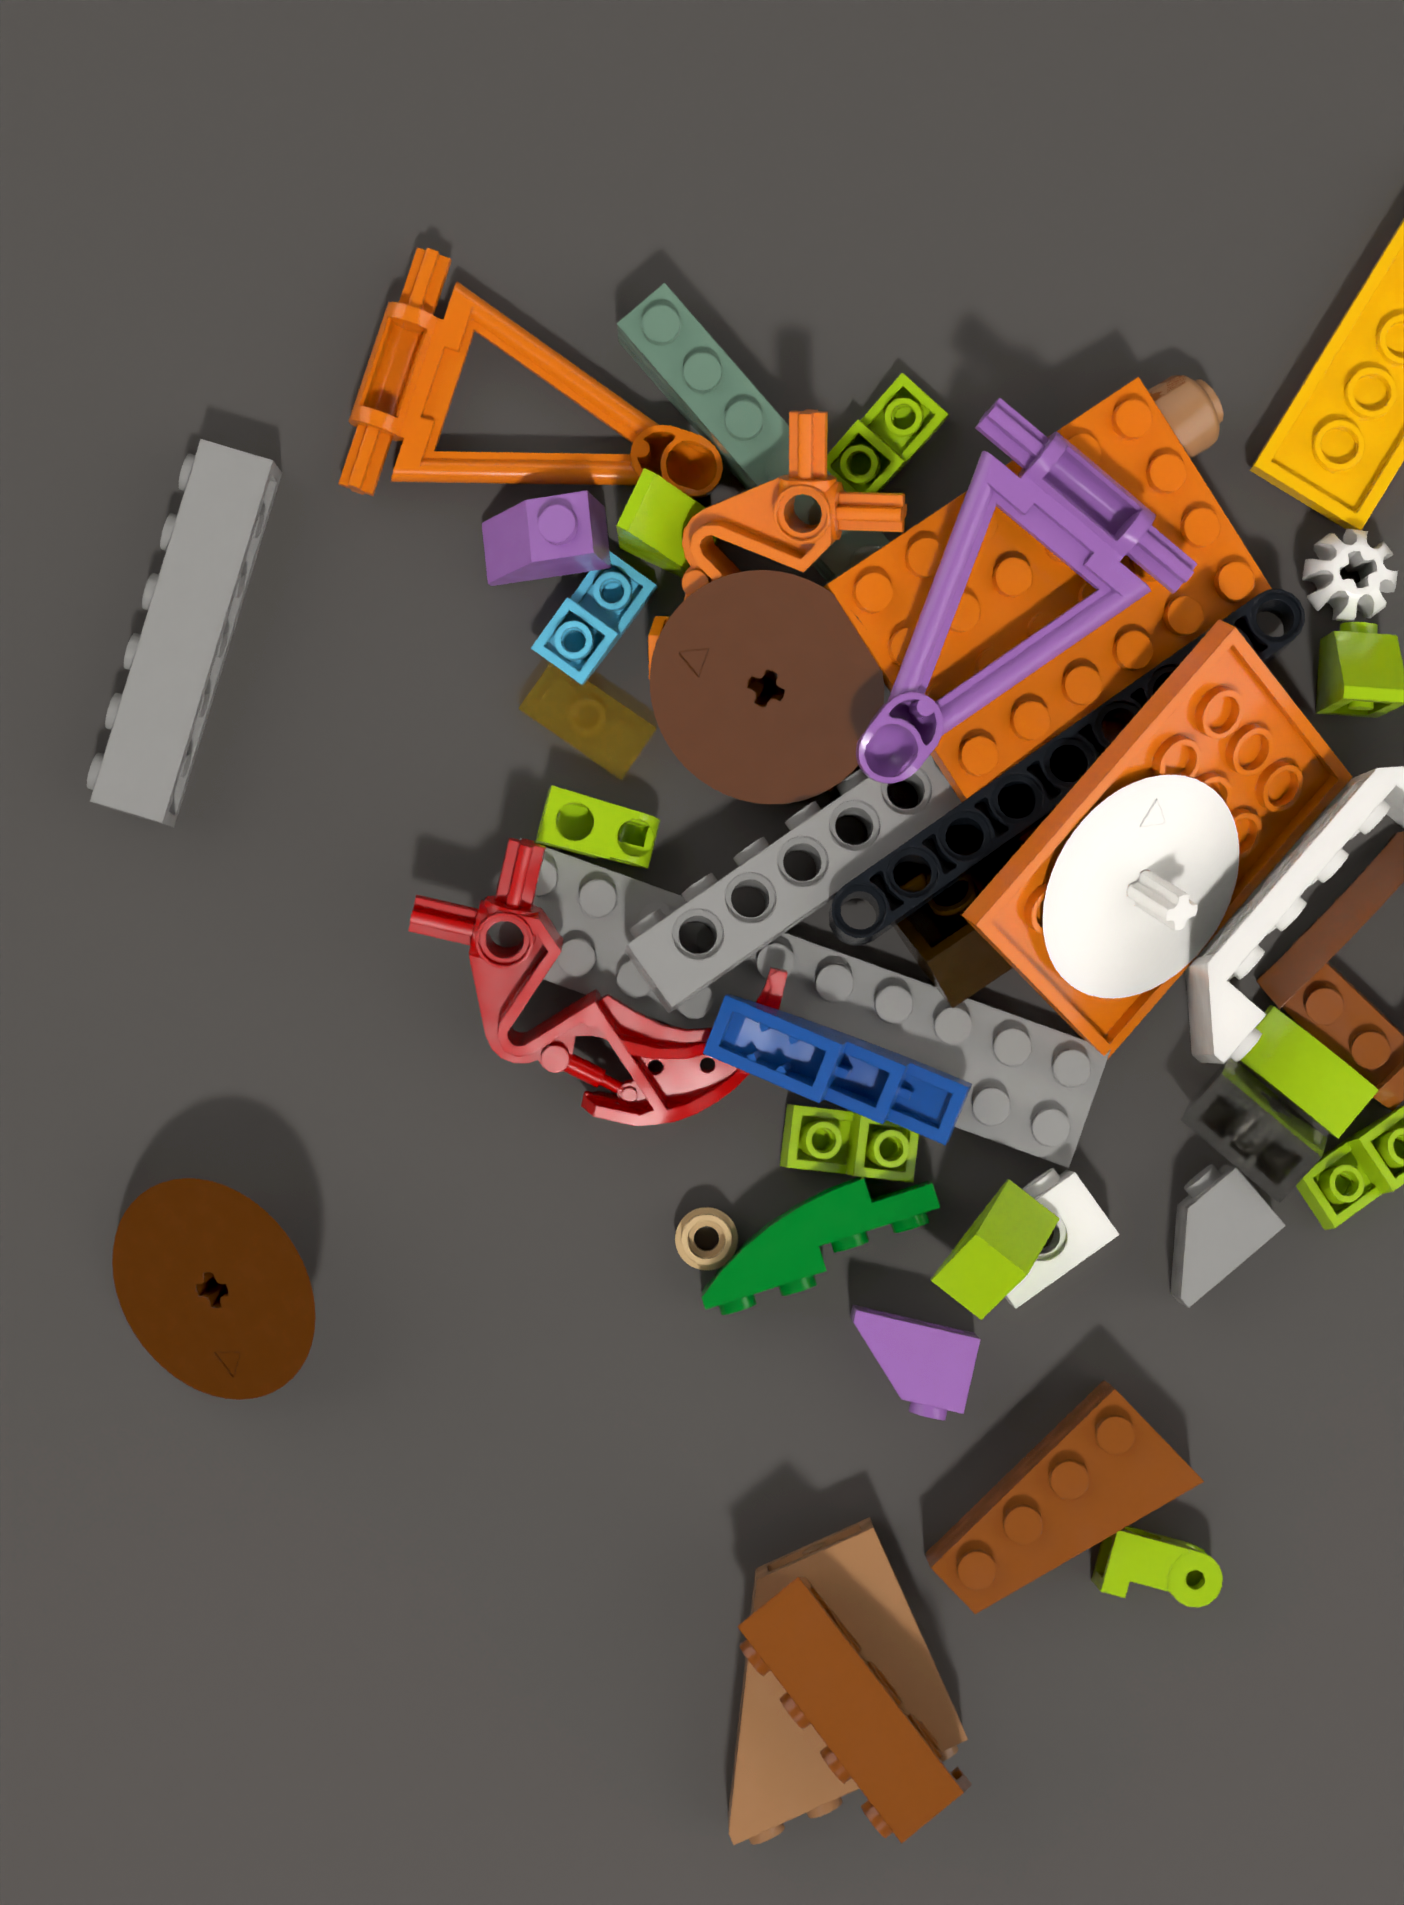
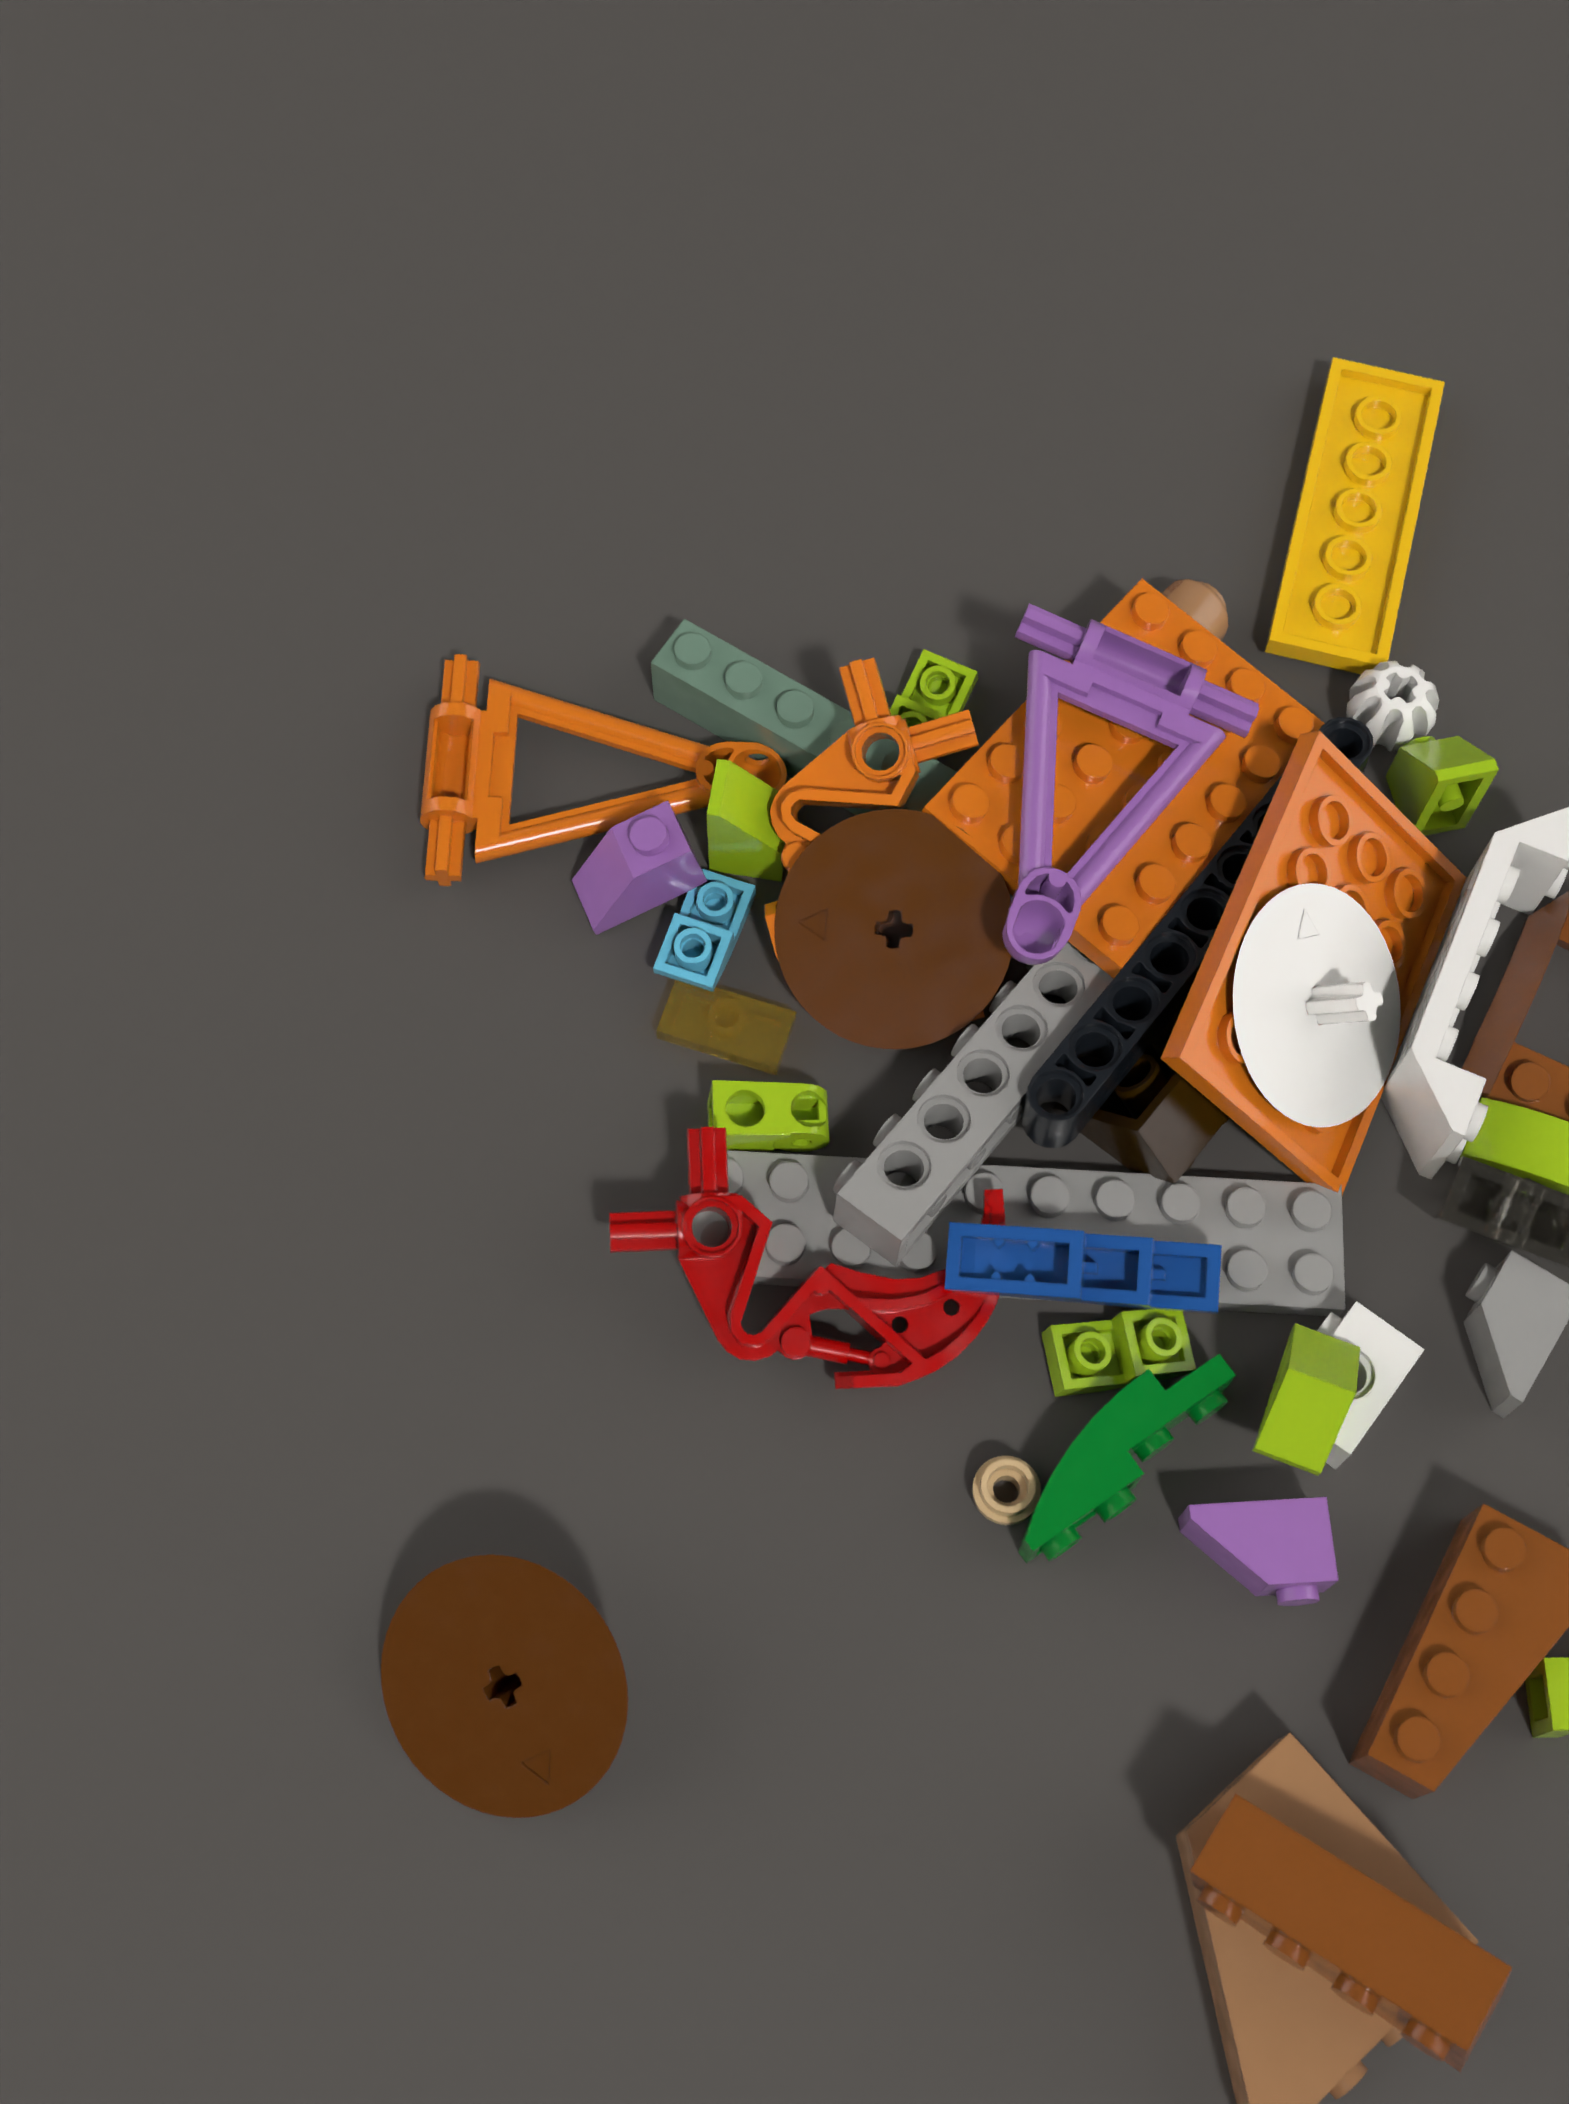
camera: 15 degrees left, 20 degrees down
(185, 632) = (308, 1054): light grey brick -> none

